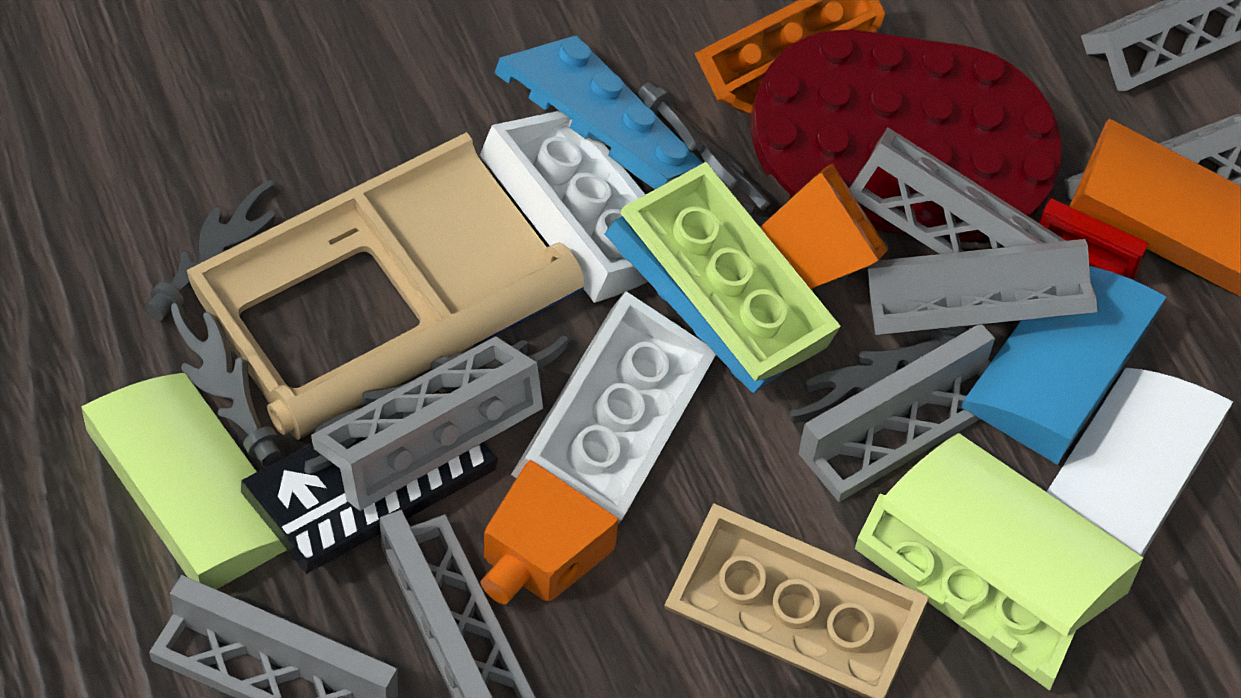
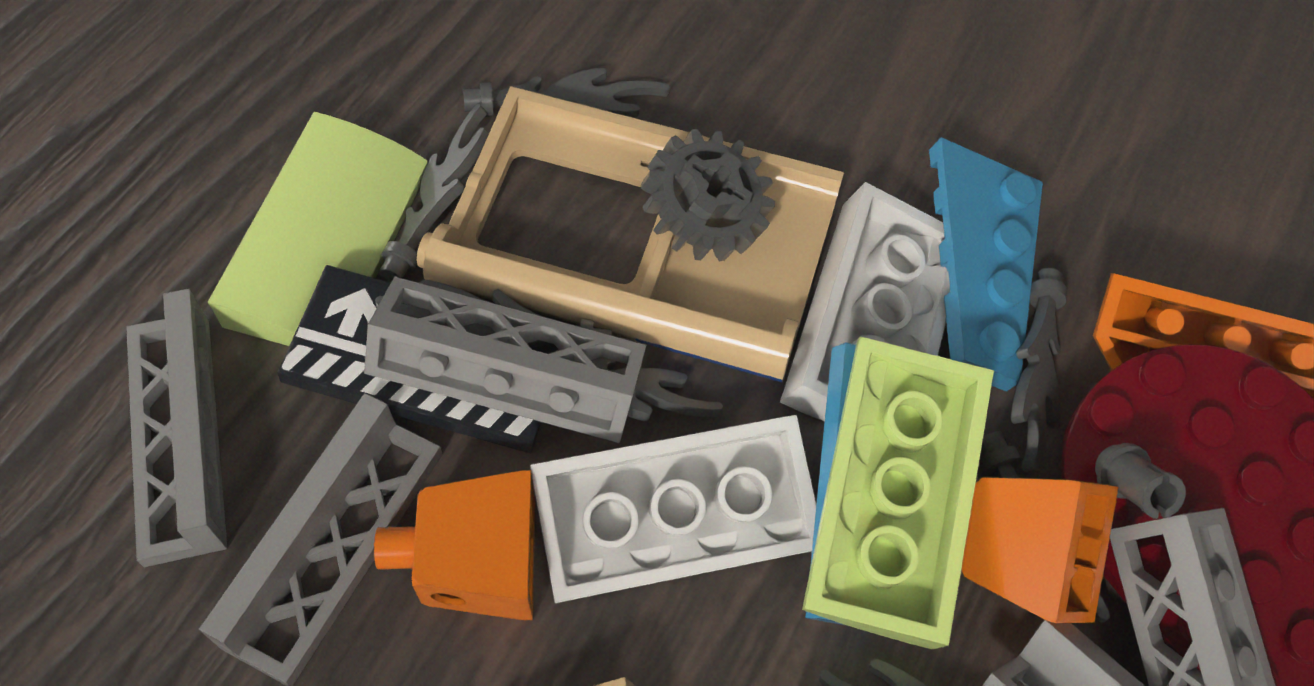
camera: 55 degrees right, 5 degrees up
(414, 217) = (707, 195): none -> dark grey gear
(837, 149) = (1140, 480): none -> dark grey pin

